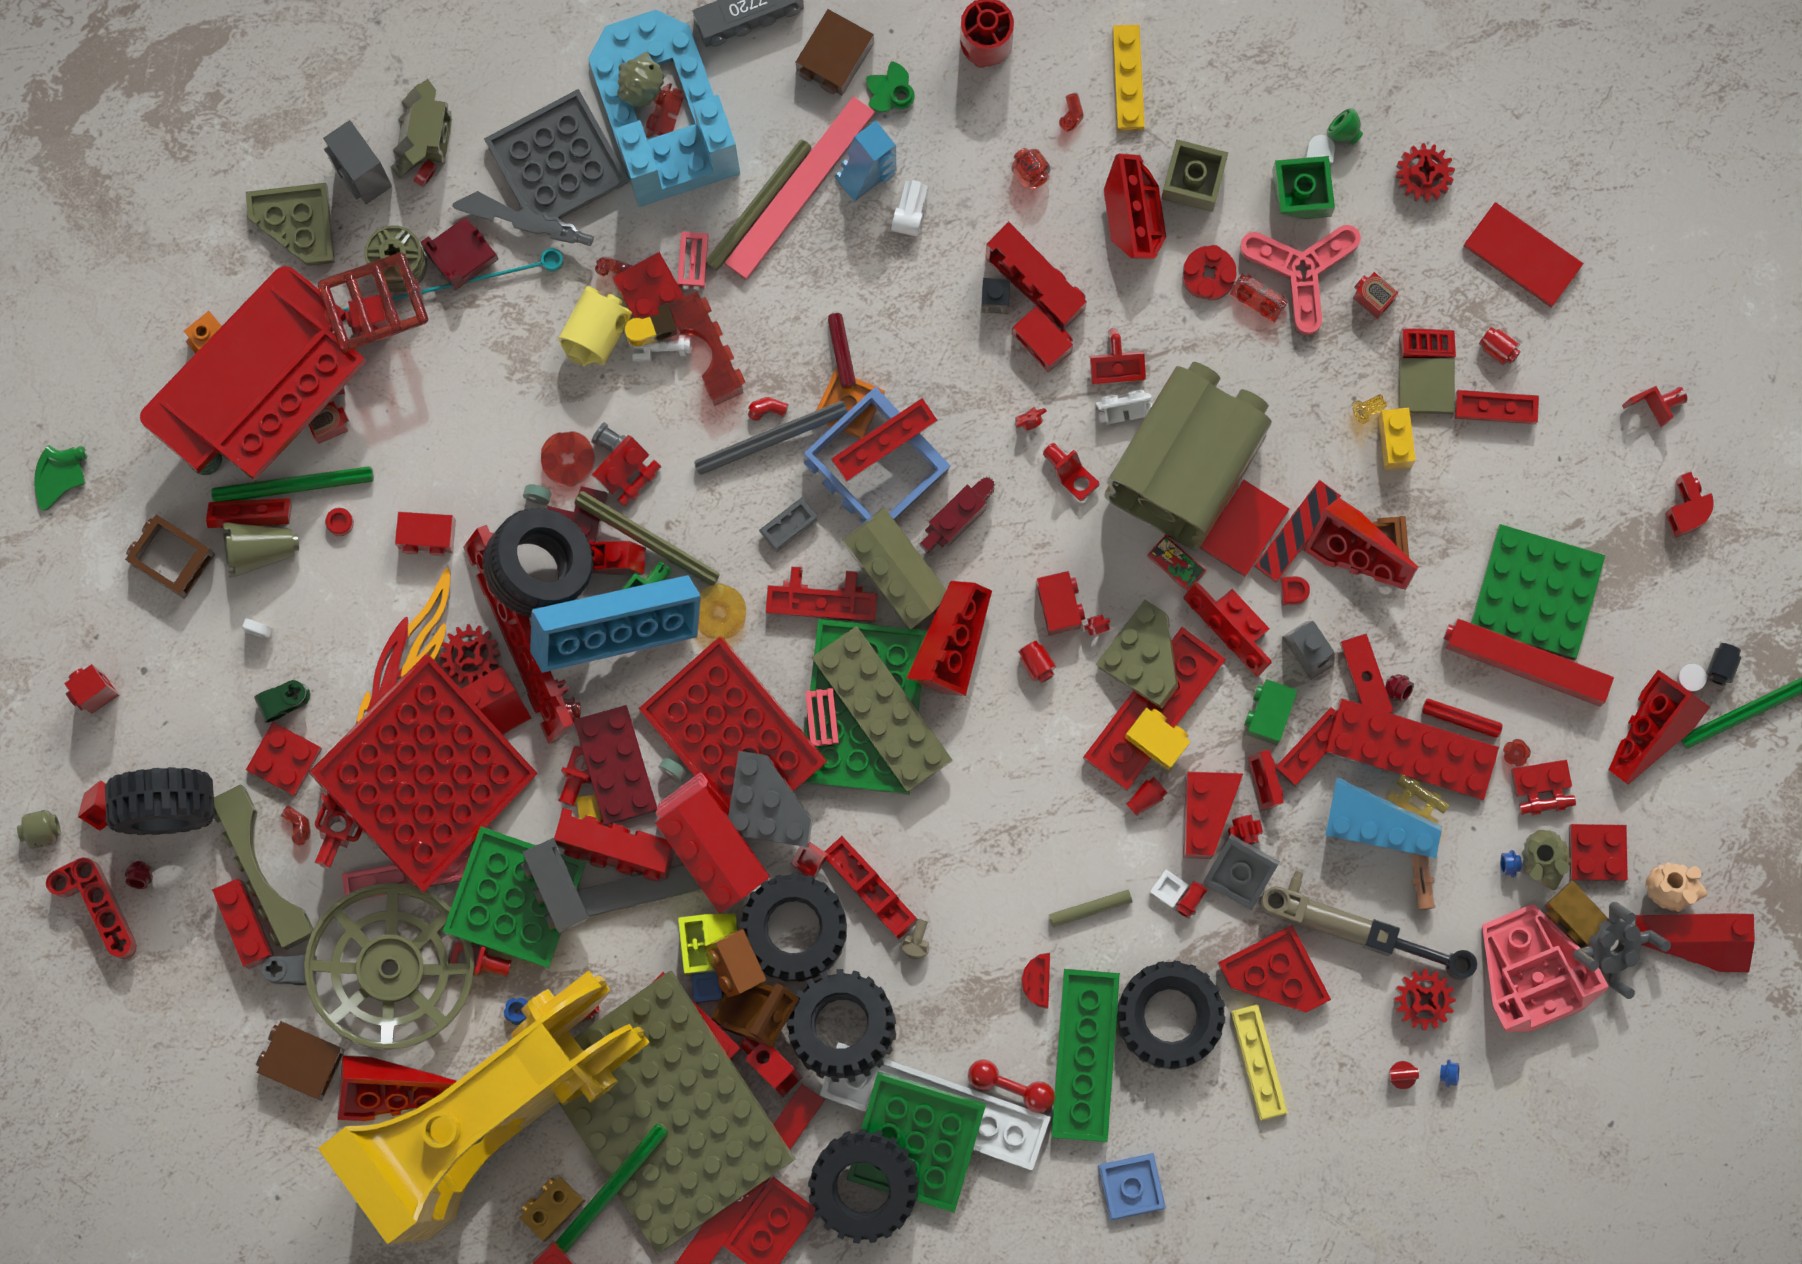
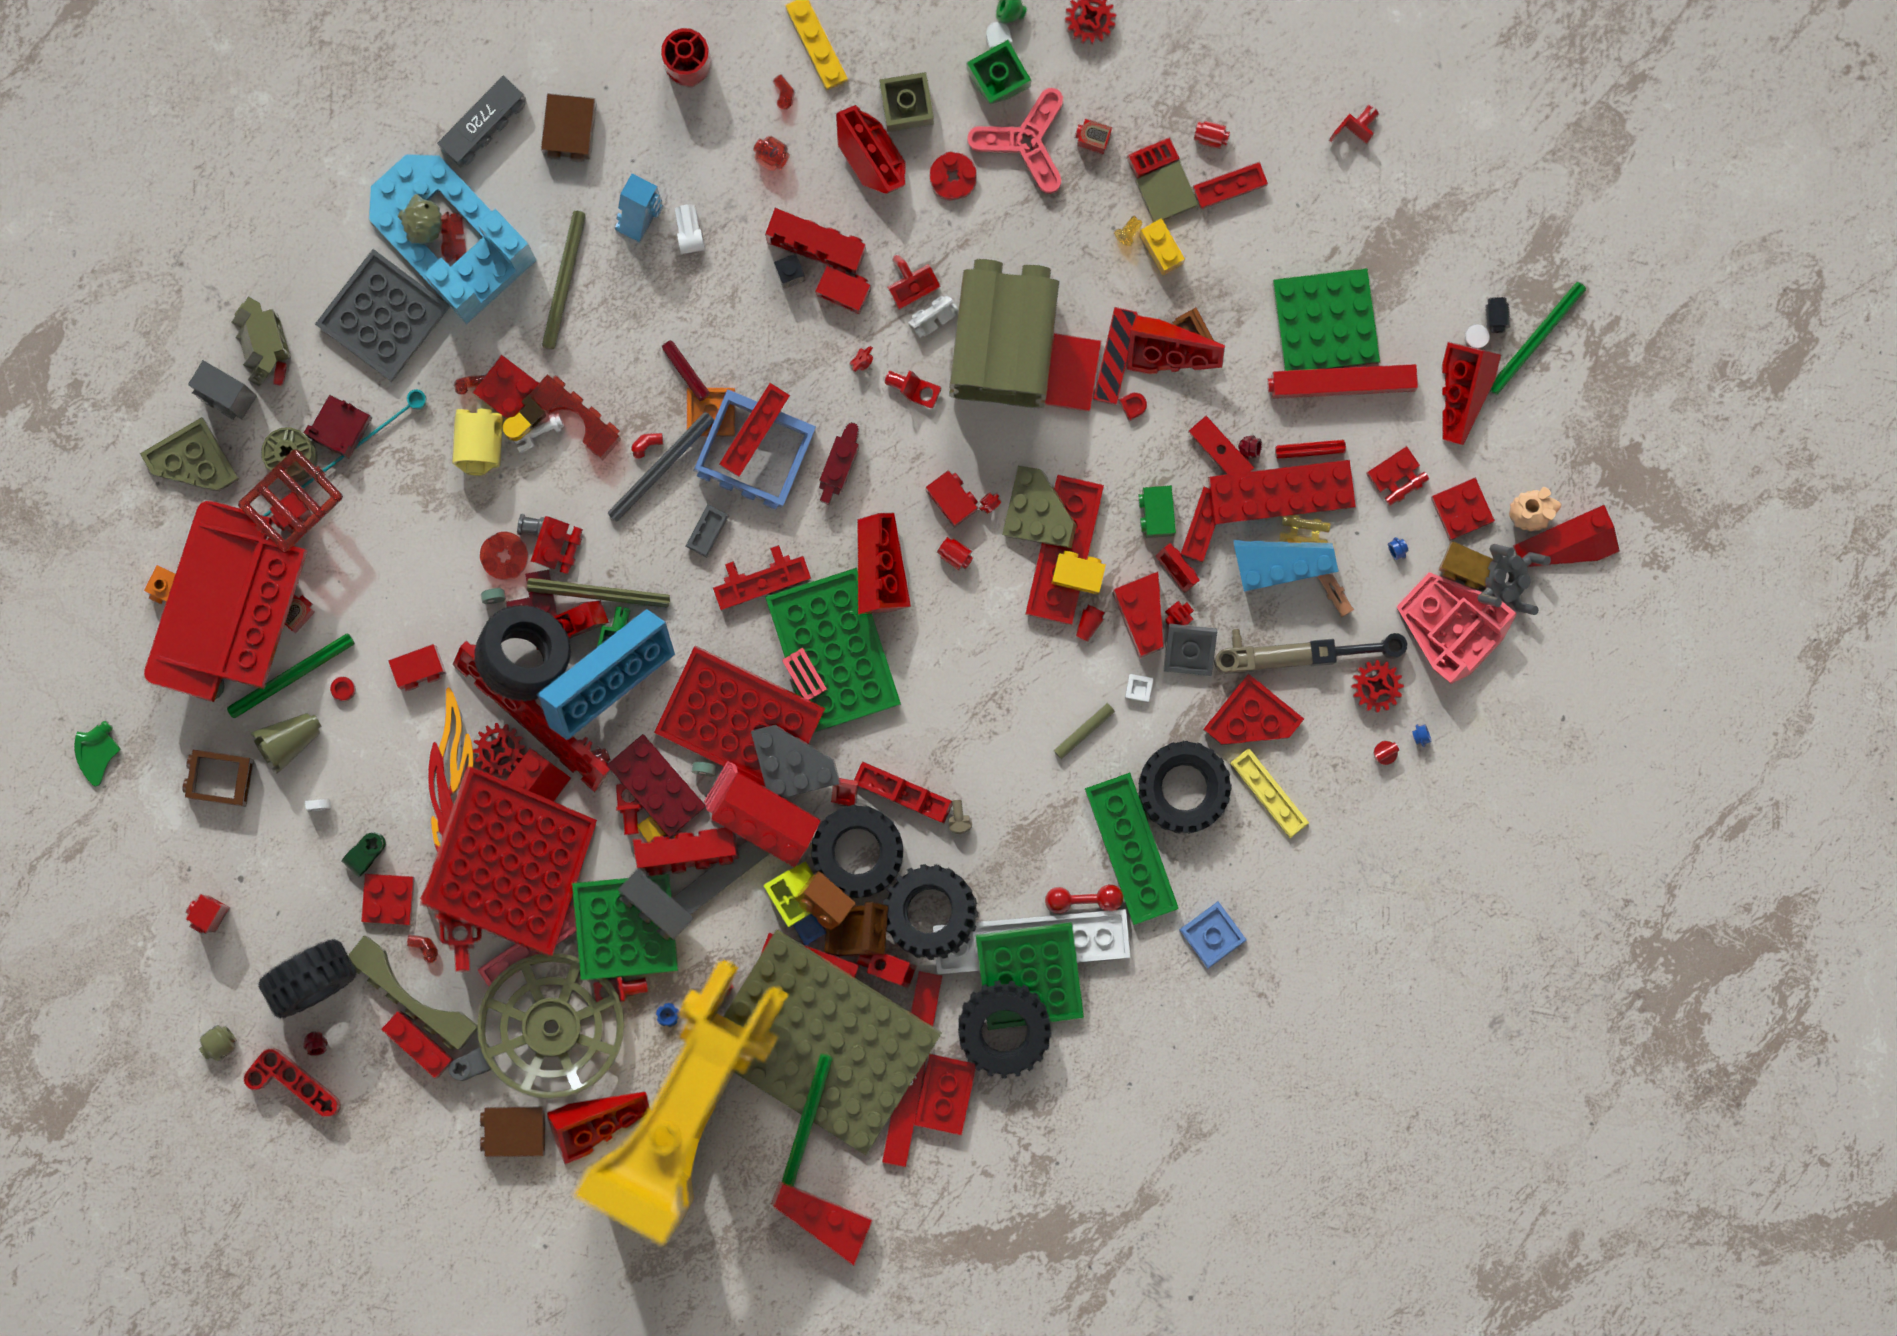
camera: 30 degrees left, 5 degrees up
(93, 806) = (254, 1005): red panel -> none
(249, 512) = (266, 714): red plate -> none
(526, 220) = (379, 376): dark grey sword -> none
(551, 1208) = (766, 1156): pearl gold brick -> none
(691, 282) = (523, 329): coral tile -> none
(735, 611) = (695, 619): clear yellow plate -> none
(799, 188) = (590, 251): coral tile -> none
(882, 709) = (849, 646): olive plate -> none
(887, 87) = (624, 137): green plate -> none
(895, 568) = (809, 529): olive slope -> none
(1036, 980) = (1067, 806): red plate -> none
(1176, 563) = (1030, 424): tile -> none
(1191, 899) = (1160, 689): red pin -> none
(1233, 623) = (1098, 454): red bracket -> none
(1249, 292) = (990, 178): clear red hinge -> none
(1310, 648) = (1166, 446): dark grey torso -> none
(1519, 745) = (1365, 451): clear red plate -> none
(1523, 254) = (1197, 50): red tile -> none
(1546, 858) = (1424, 532): olive animal -> none
(1695, 509) = (1422, 200): red brick -> none

